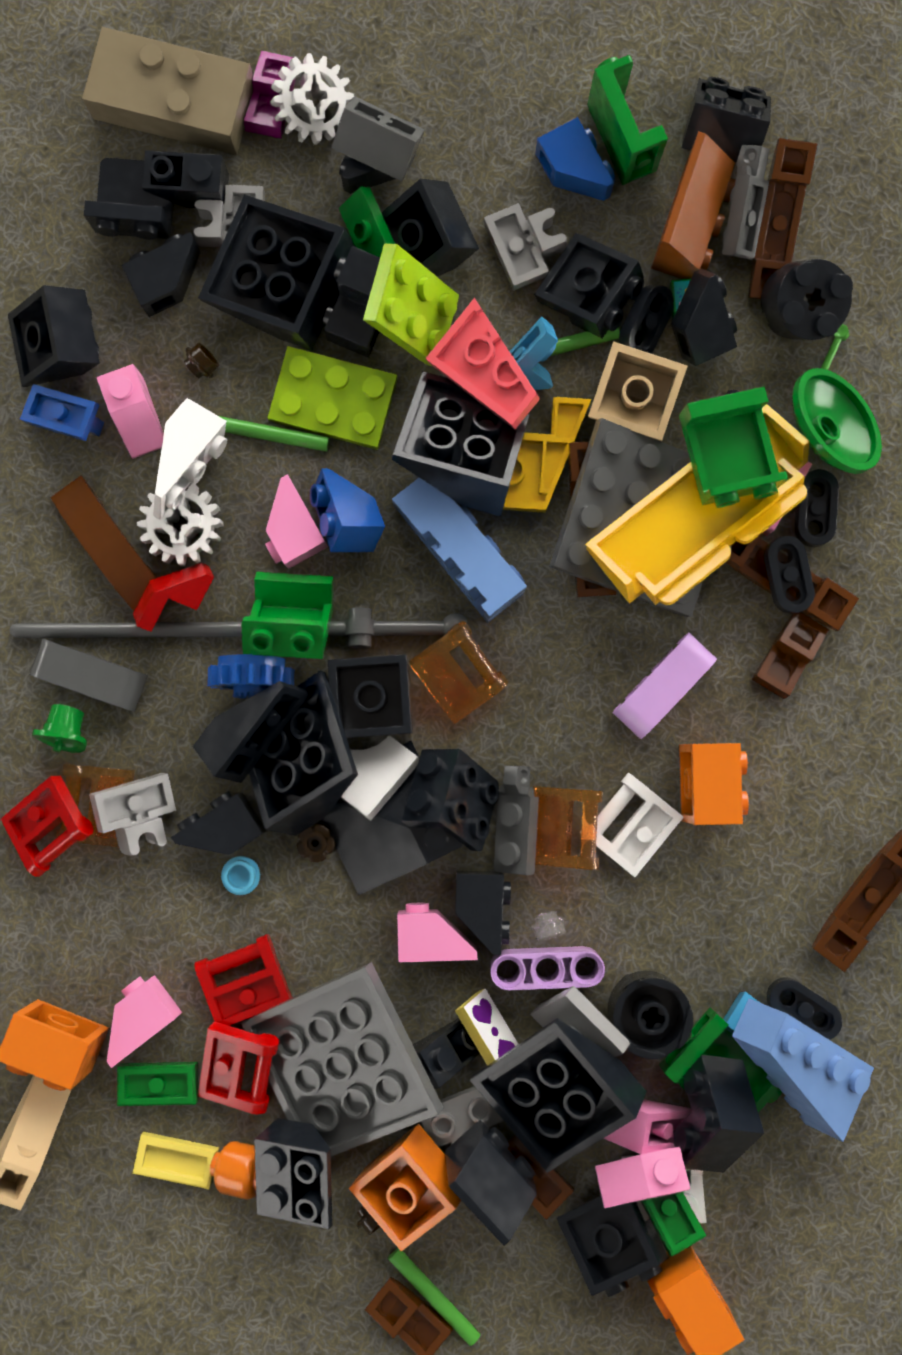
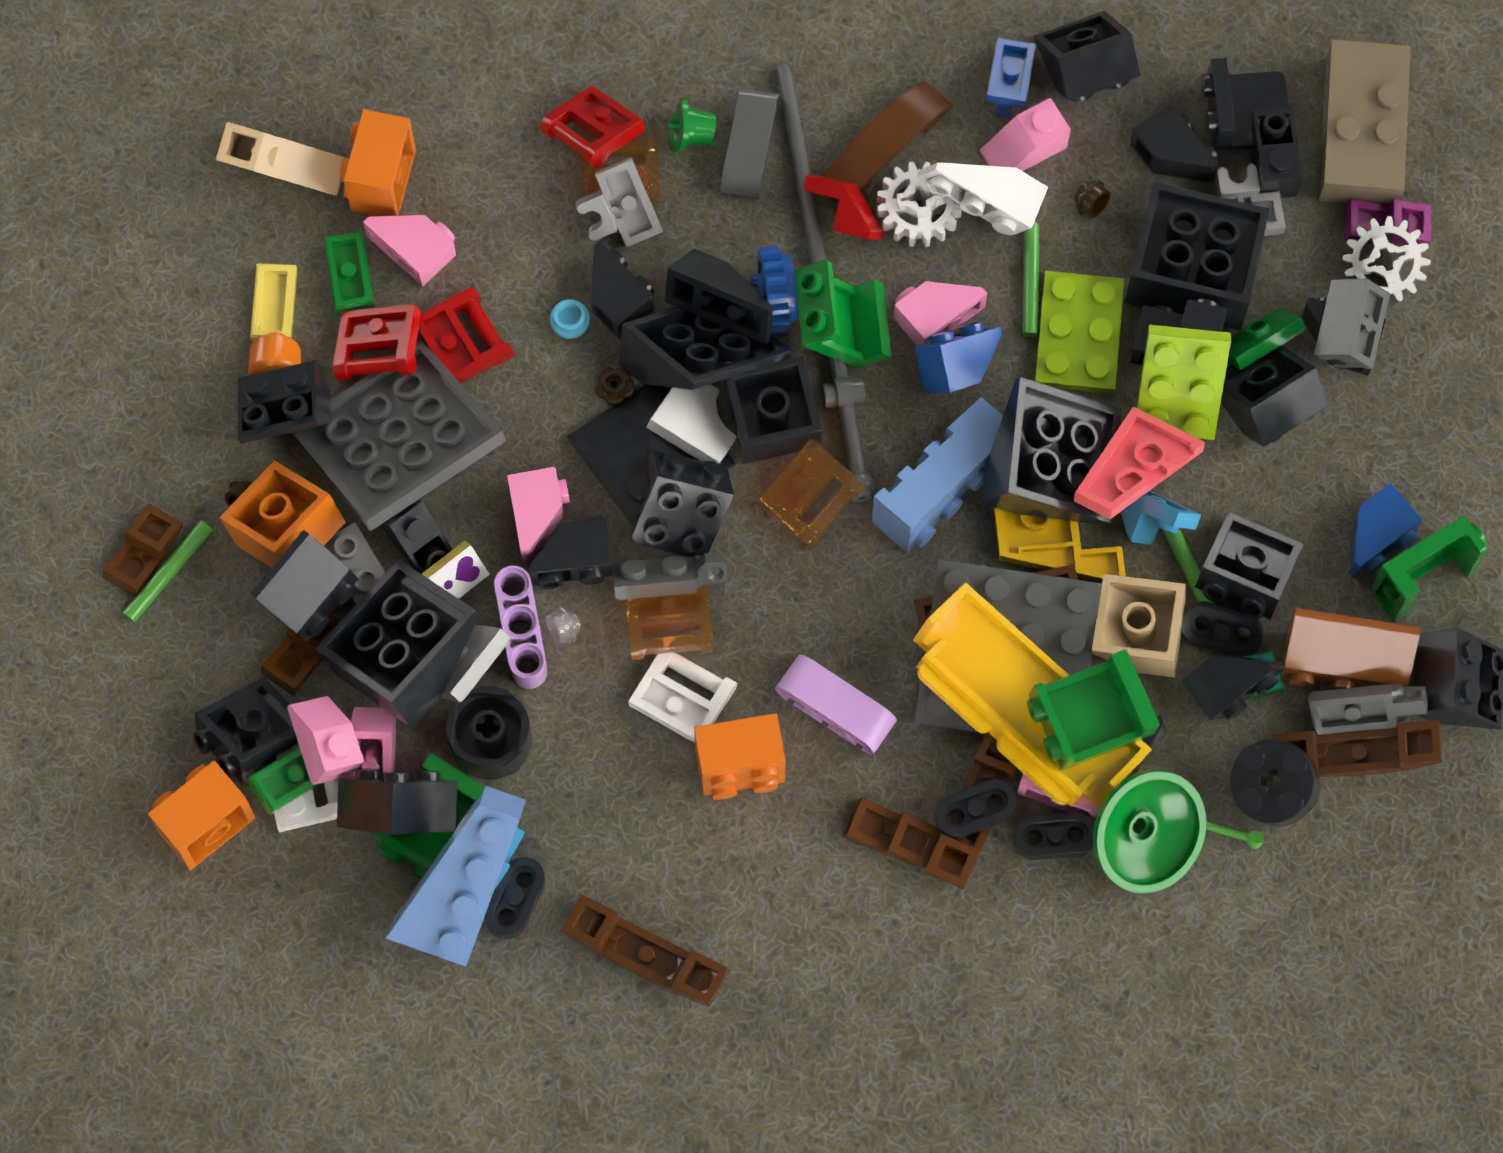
camera: 80 degrees right, 15 degrees down
(523, 243) = (1280, 493): light grey plate -> none

